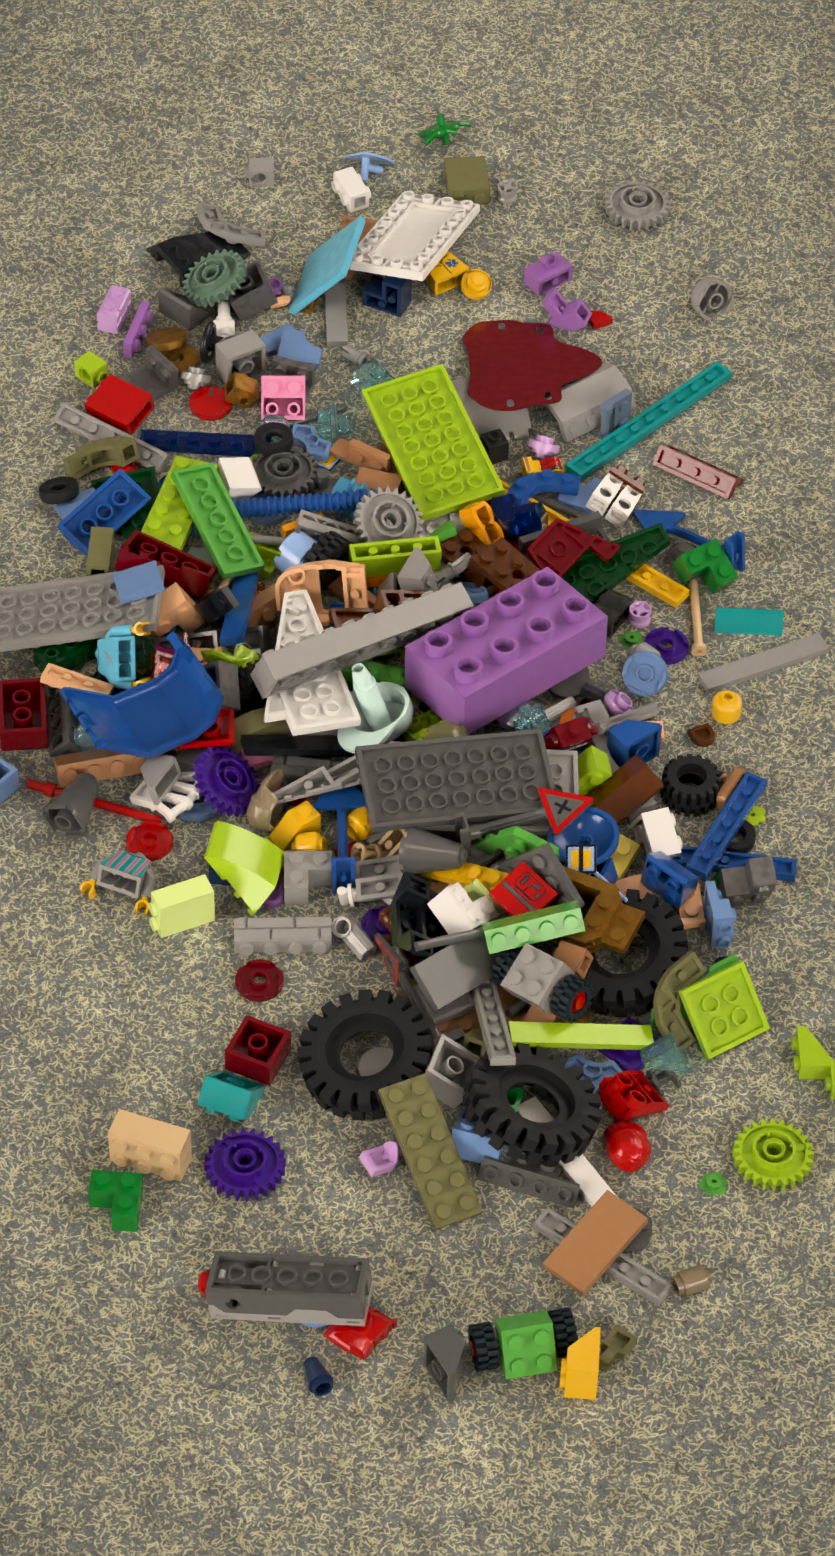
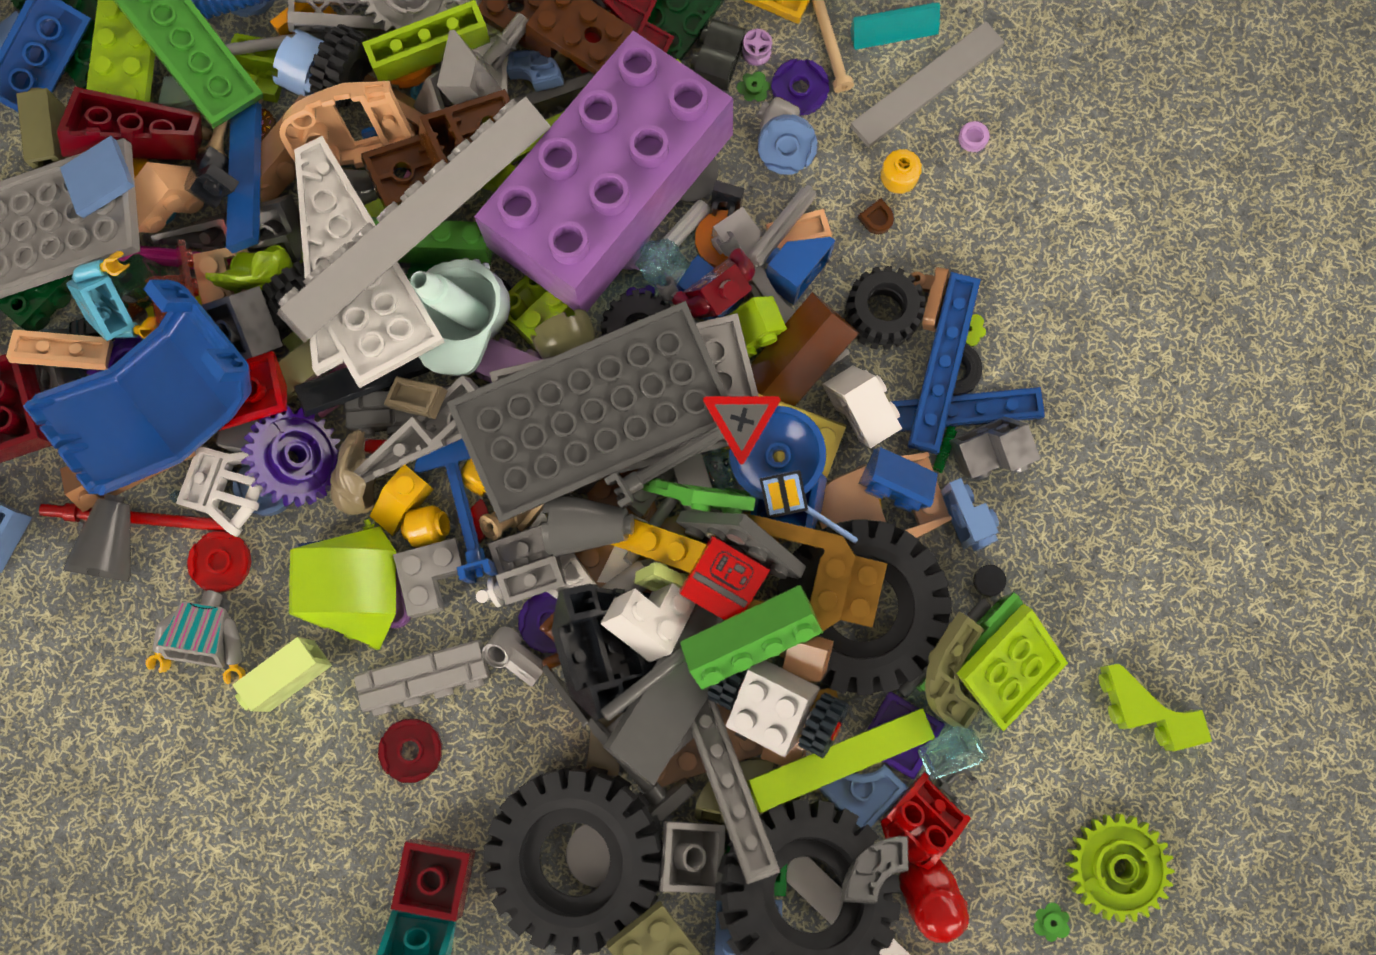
camera: 10 degrees left, 30 degrees up
(160, 775) = (203, 479): light grey slope -> none
(331, 758) = (415, 397): none -> dark tan tile
(587, 1096) = (873, 867): none -> dark grey tile
(617, 703) = (764, 200): lavender plate -> none
(790, 701) = (973, 136): none -> lavender tile

